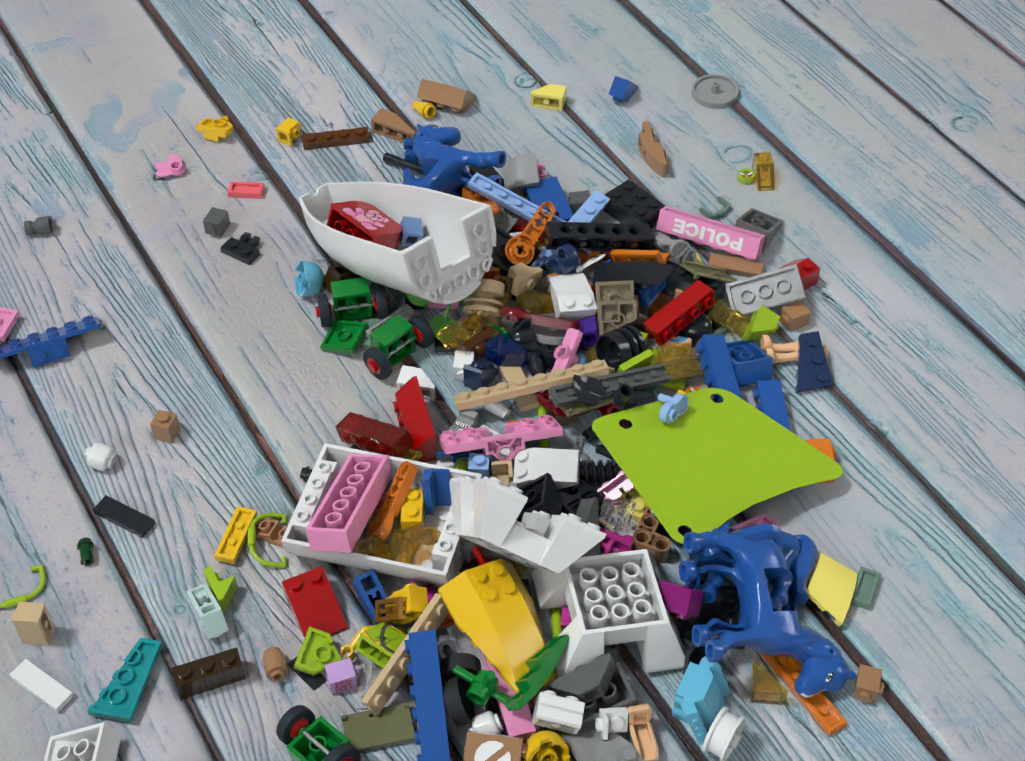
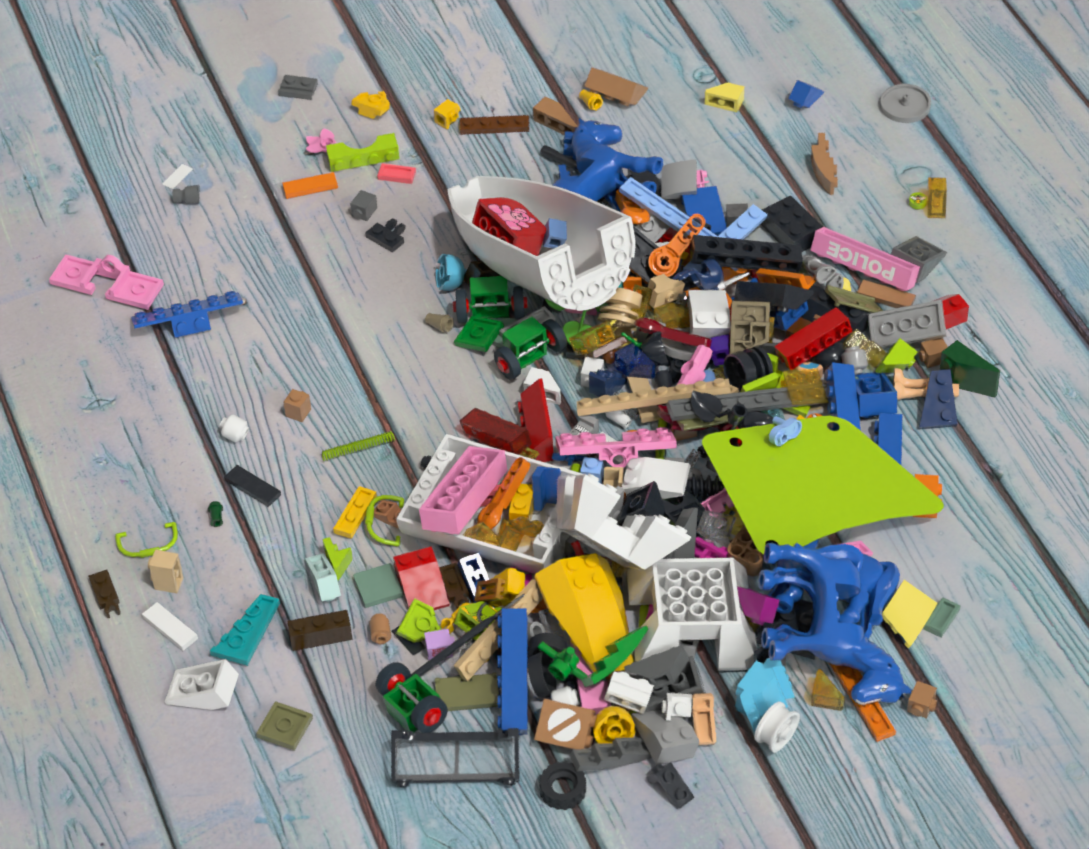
camera: 10 degrees right, 0 degrees up
(29, 209) = (177, 176): none -> white sticker
(143, 118) = (298, 87): none -> dark grey plate
(161, 207) = (310, 185): none -> orange tile
(192, 178) = (344, 157): none -> lime arch
(231, 460) = (357, 443): none -> lime piece
(268, 614) = (378, 585): none -> sand green tile
(304, 328) = (440, 321): none -> dark tan cone
(350, 605) = (454, 584): none -> dark brown plate
(365, 672) = (461, 641): none -> black piece
(719, 213) = (882, 238): sand green piece -> none
(722, 326) = (856, 357): none -> light grey head
(837, 329) = (970, 370): none -> dark green slope

